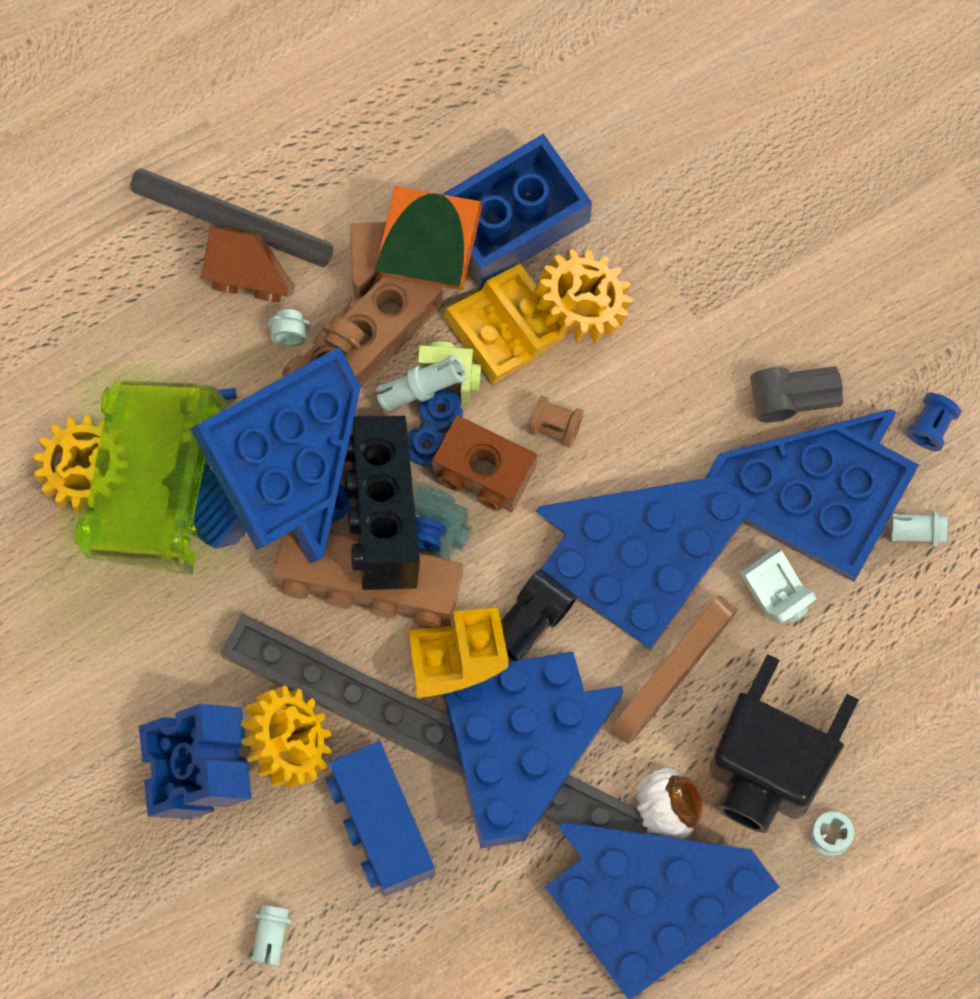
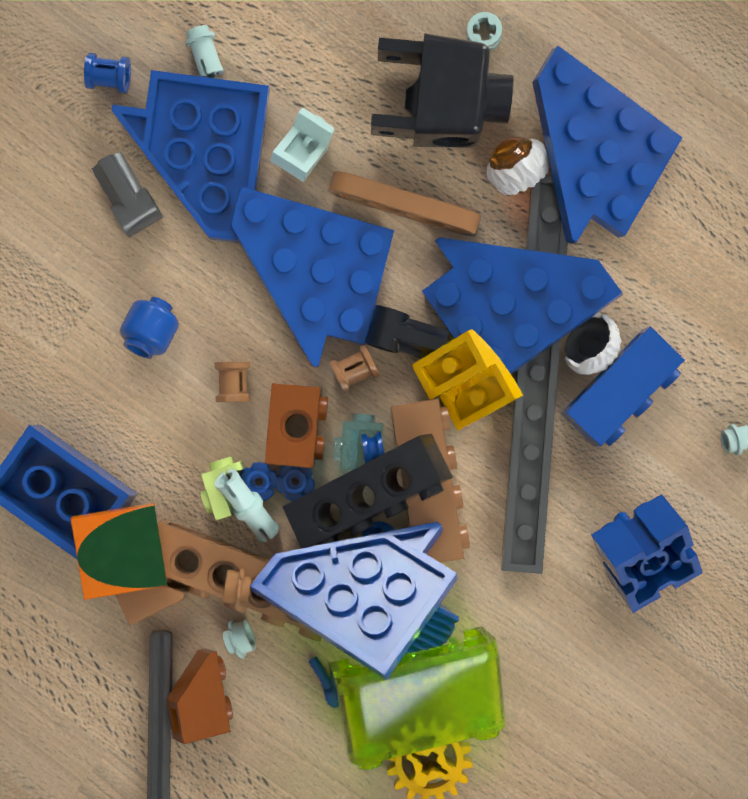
camera: 115 degrees left, 15 degrees up
(286, 737) = (593, 489): yellow gear -> none
(439, 803) = (593, 345): none -> hair
(504, 324) = (161, 458): yellow slope -> none
(518, 549) = (355, 369): none -> medium nougat bush
(585, 293) = (127, 387): yellow gear -> none
(646, 360) = (149, 327): none -> blue head

